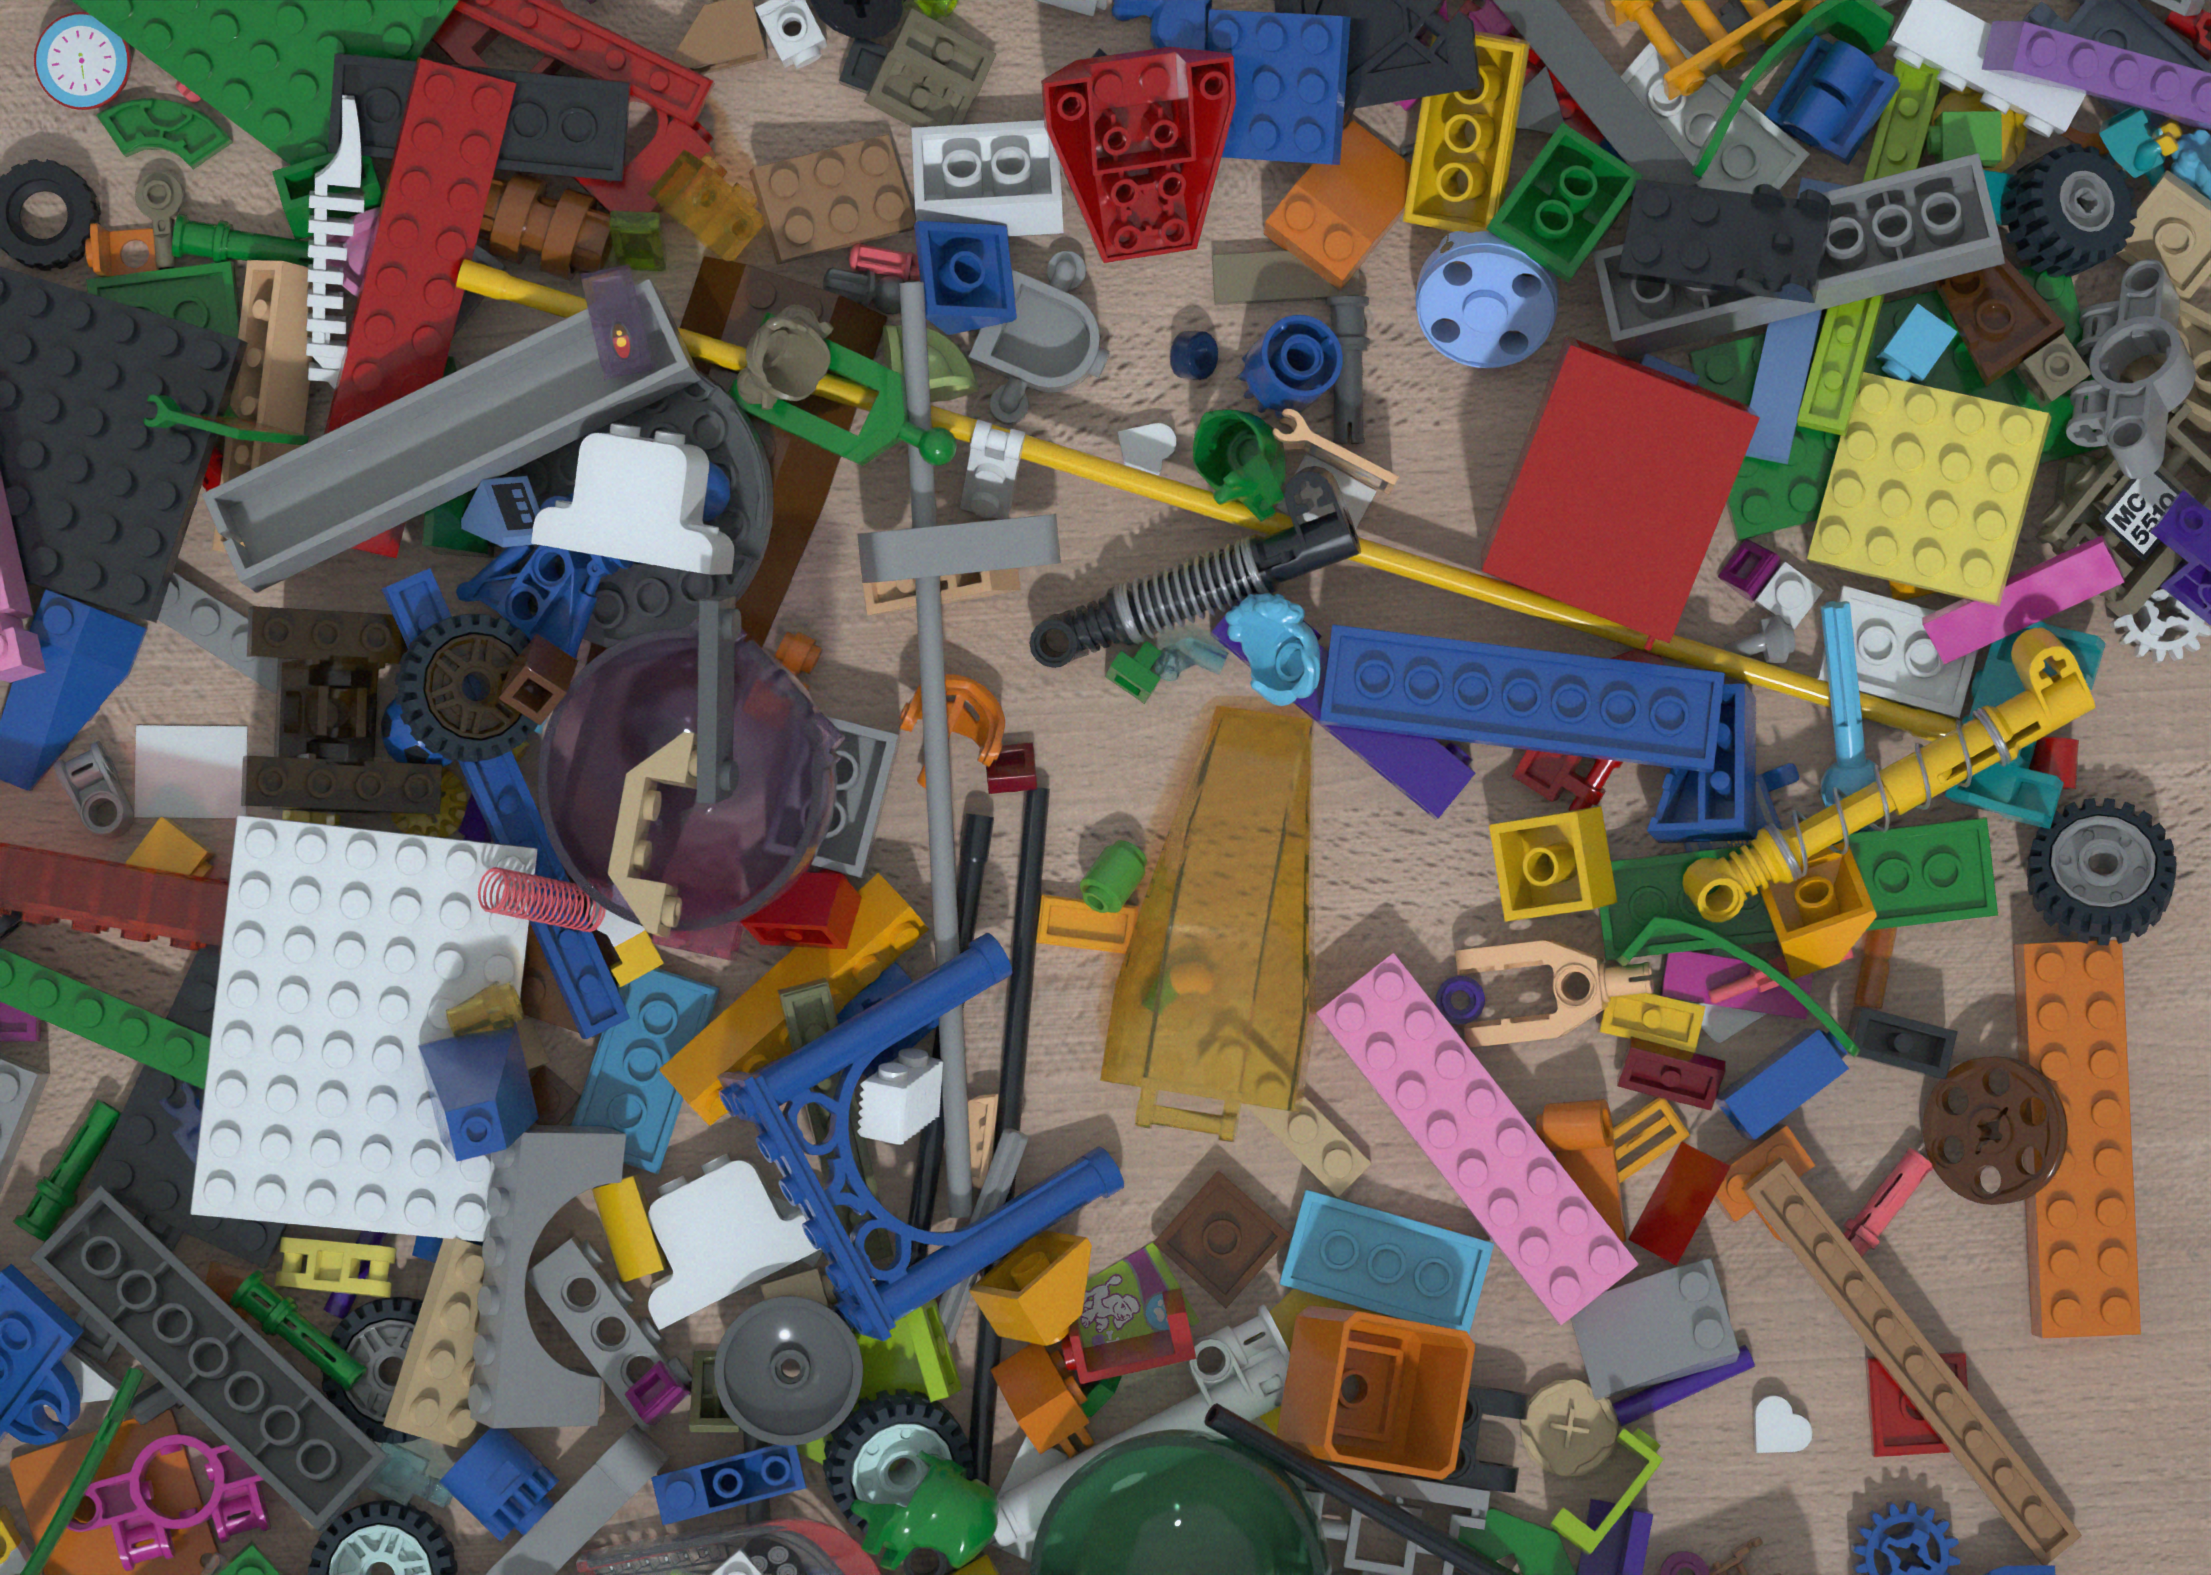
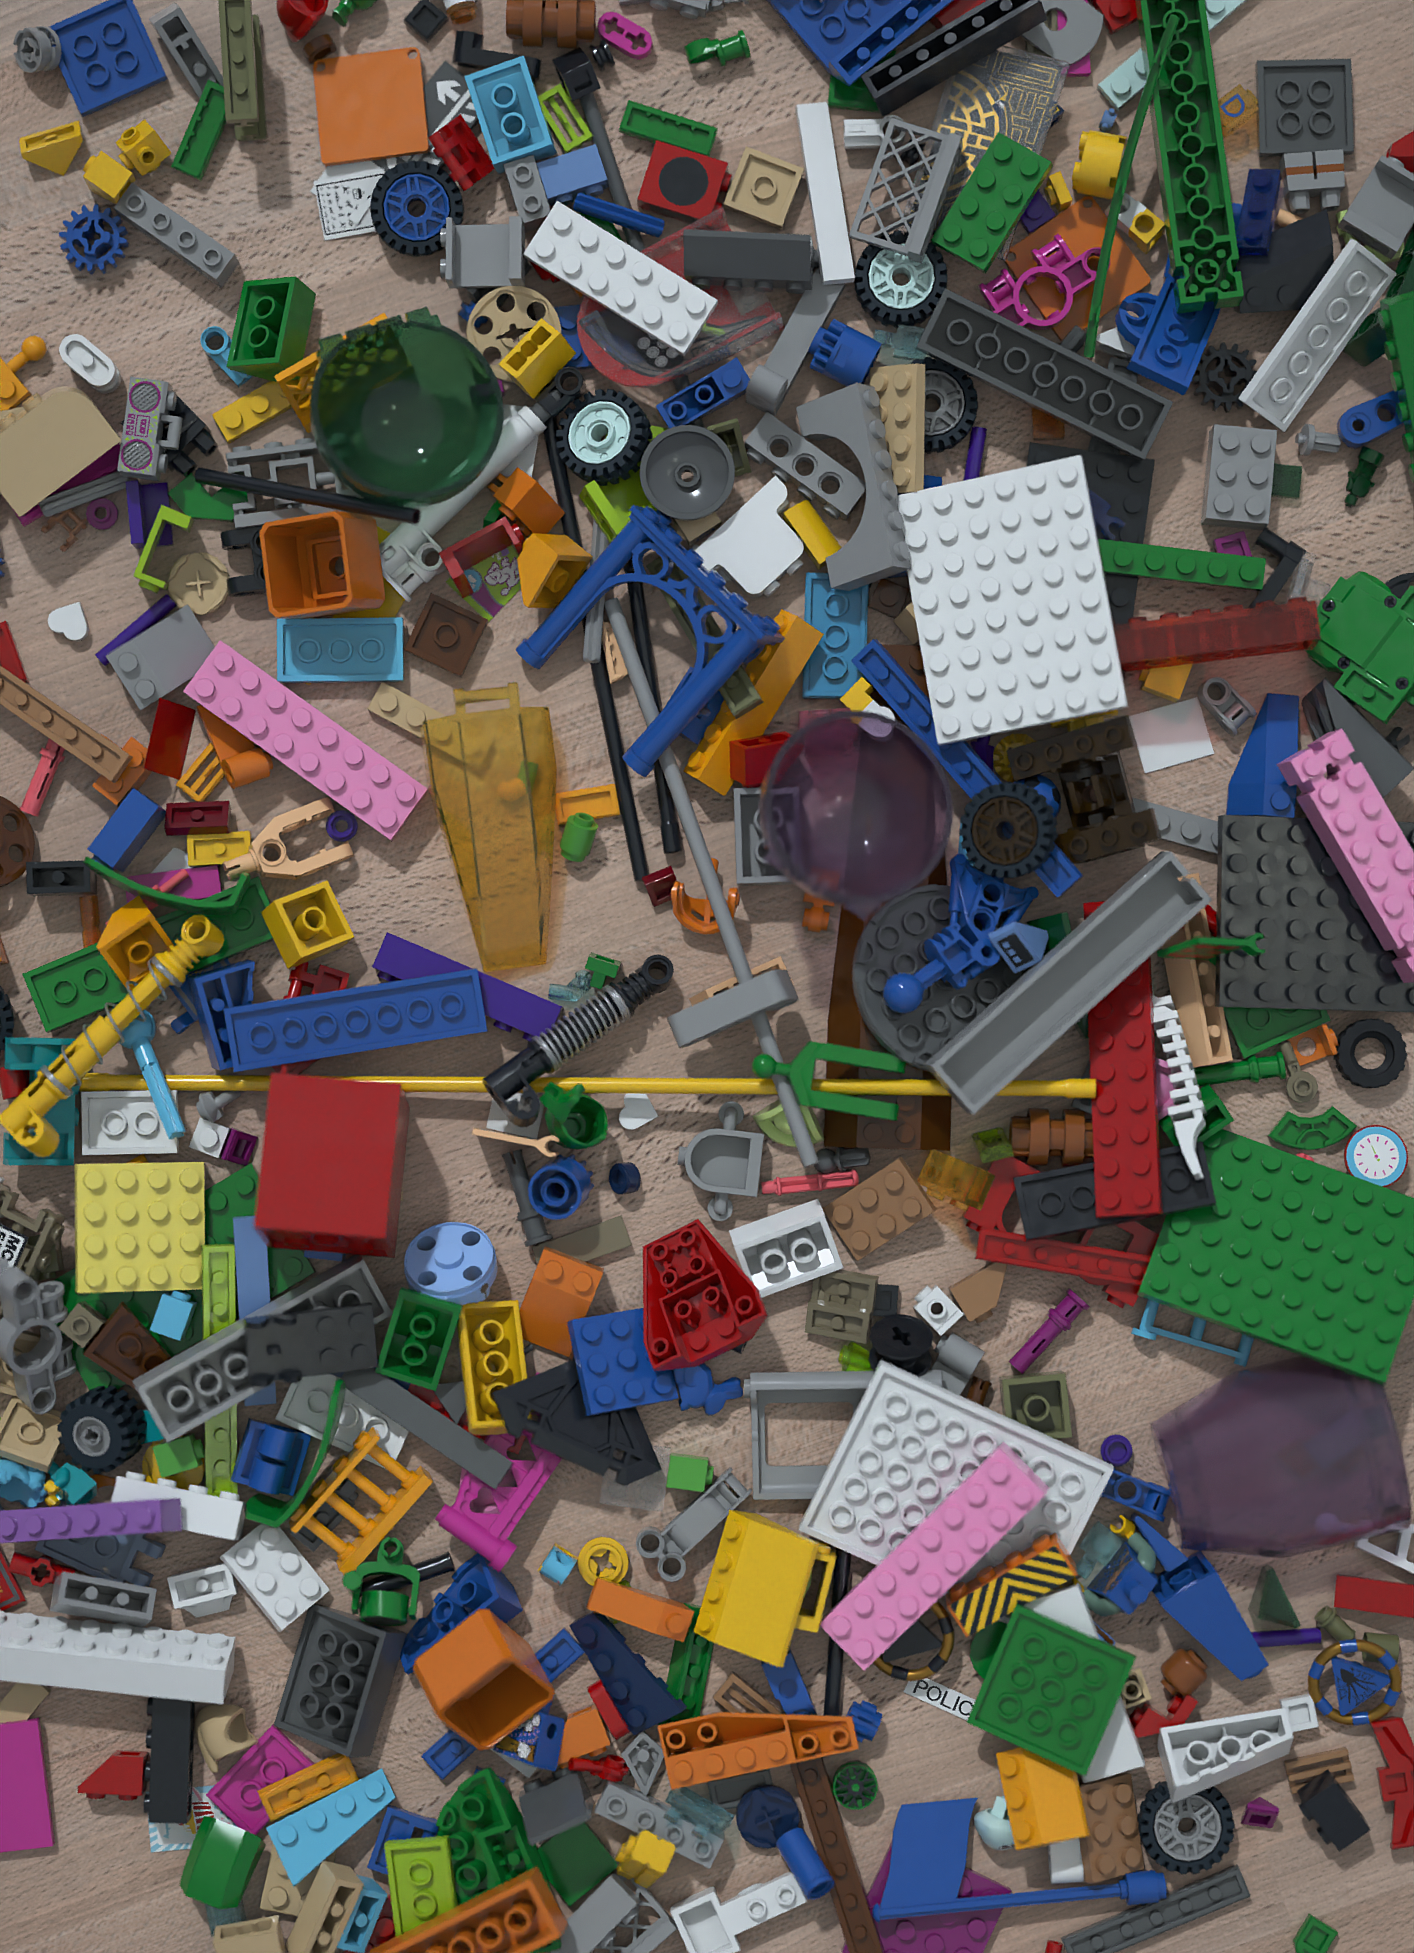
camera: 165 degrees right, 0 degrees up
(58, 1190) = (1172, 453): green pin -> none
(274, 1321) = (1013, 410): green pin -> none
(335, 1267) = (986, 455): light yellow plate -> none
(479, 1091) = (925, 580): blue slope -> none
(487, 1010) = (937, 633): clear yellow cone -> none
(538, 679) = (966, 845): reddish brown brick -> none
(538, 879) = (946, 696): coral piece -> none
(616, 321) = (985, 1080): clear purple slope -> none
(638, 504) = (936, 970): white brick -> none
(651, 901) = (853, 724): tan slope -> none
(656, 1394) = (765, 435): magenta slope -> none
(715, 728) = (860, 900): dark grey plate -> none
(785, 358) = (874, 1092): dark tan hair -> none
(901, 1097) = (668, 659): white brick -> none
(942, 1515) = (565, 411): green piece -> none
(965, 275) = (780, 1183): blue slope -> none
(992, 471) = (727, 1064): white plate -> none
(1278, 647) = (516, 1006): medium azure hair -> none
(2025, 600) = (59, 1173): dark pink tile -> none

